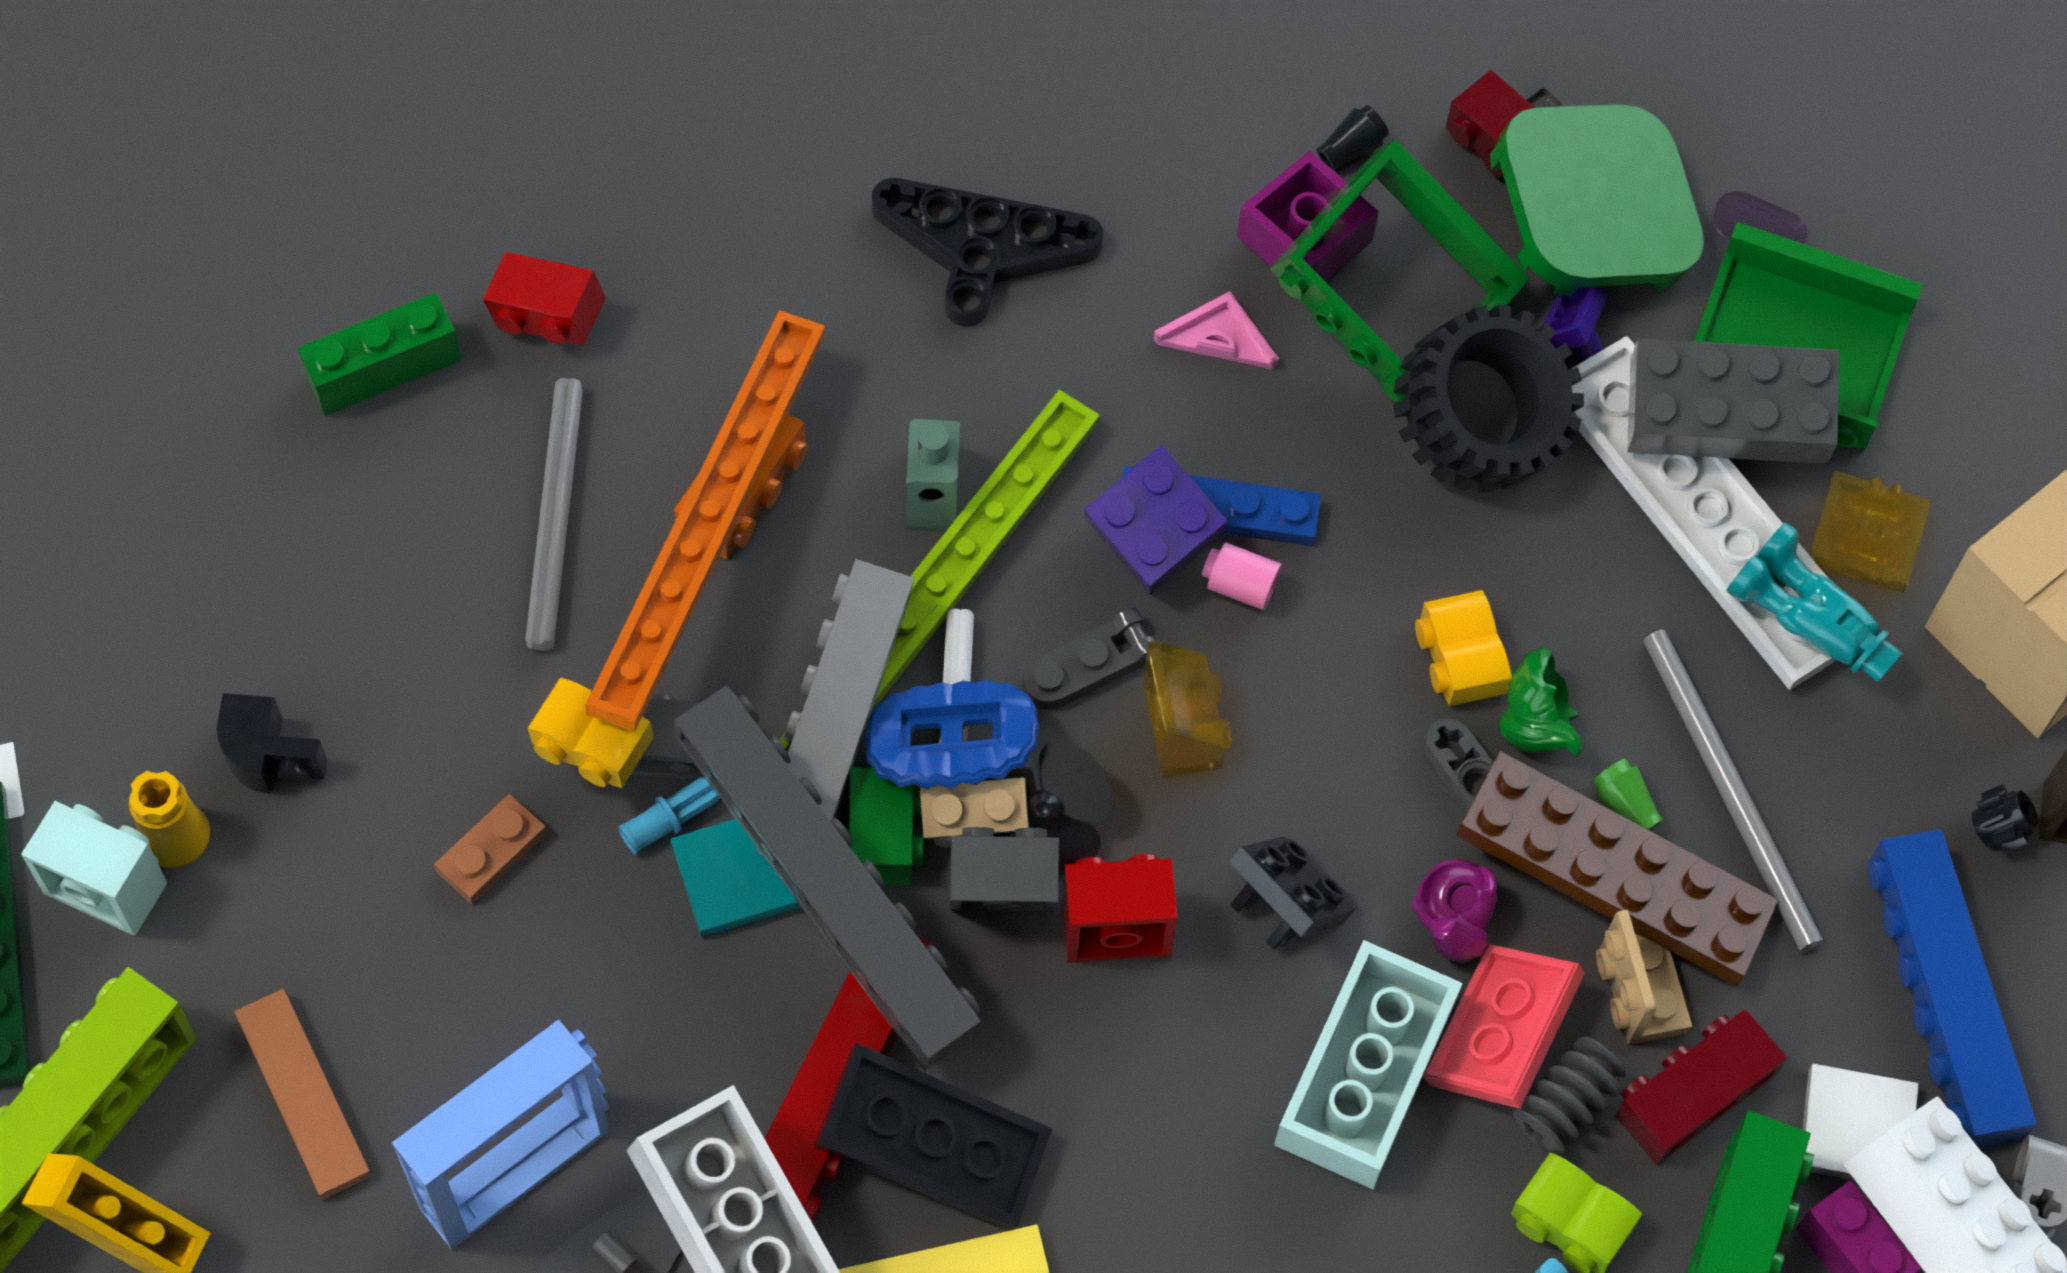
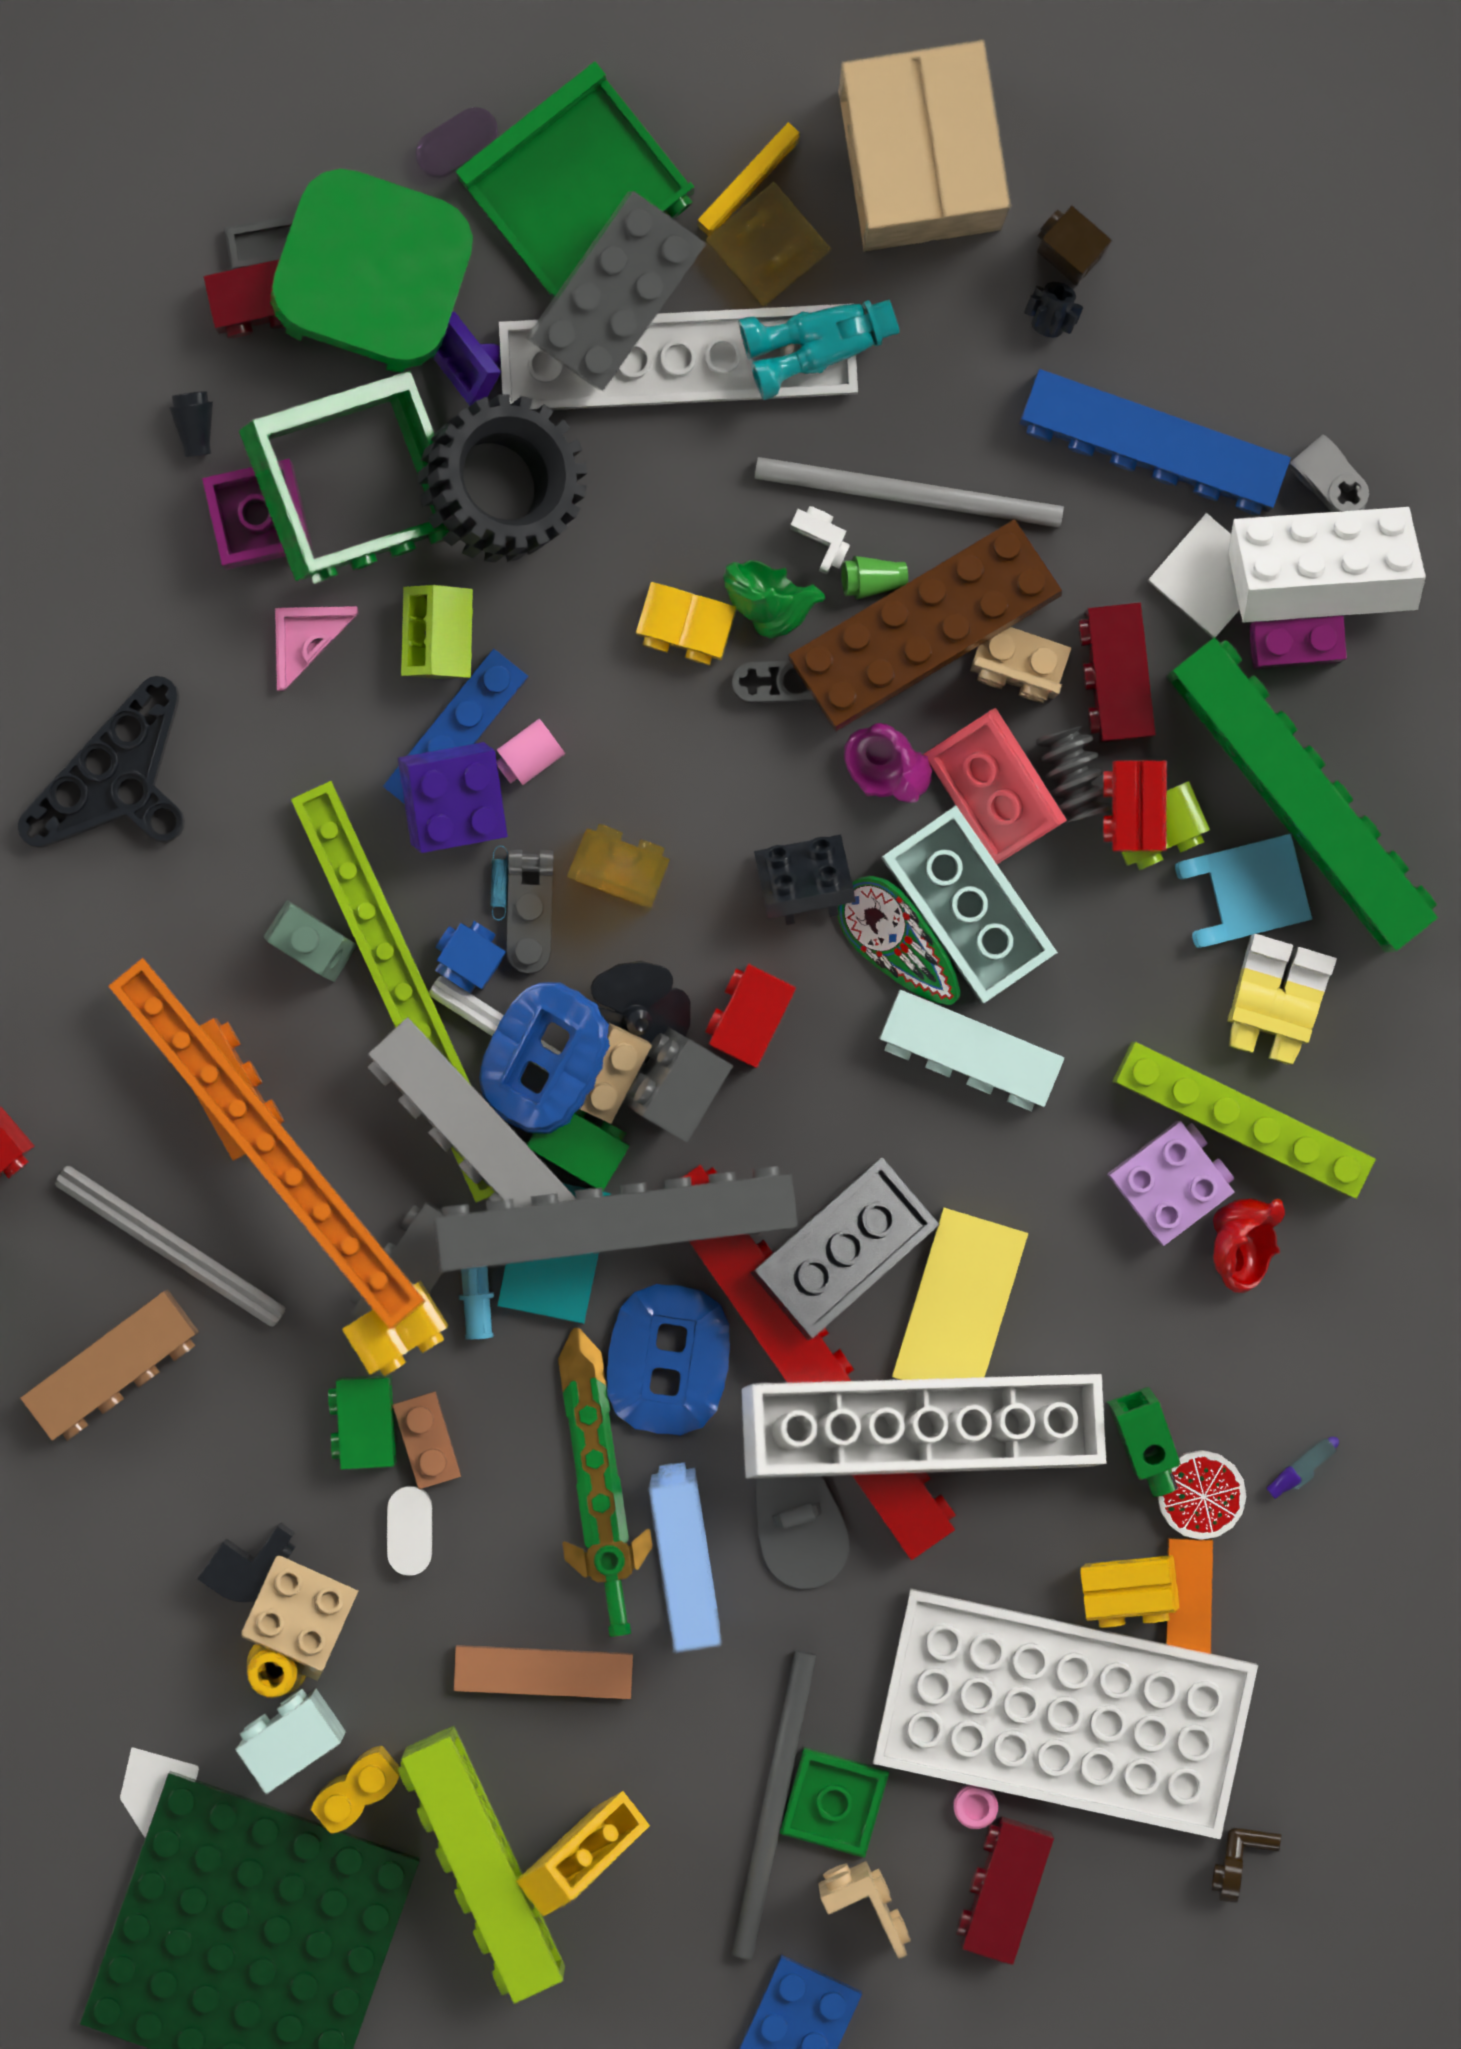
camera: 60 degrees left, 25 degrees up
(66, 966) = (345, 1796): none -> yellow brick
(235, 809) = (299, 1614): none -> tan bracket
(385, 881) = (409, 1530): none -> white tile
(402, 515) = (110, 1365): none -> medium nougat brick
(475, 774) = (364, 1422): none -> green brick
(582, 1006) = (597, 1480): none -> sword
(696, 1002) = (700, 1364): none -> blue piece
(1009, 626) = (468, 956): none -> blue brick
(1096, 619) = (499, 883): none -> medium azure piece
(1221, 1157) = (972, 1049): none -> light aqua brick
(1287, 1013) = (898, 940): none -> shield
(1303, 430) = (447, 620): none -> lime brick
(1584, 1164) = (1137, 806): none -> red brick
(1639, 723) = (818, 526): none -> white bracket
(1936, 482) = (749, 179): none -> yellow tile

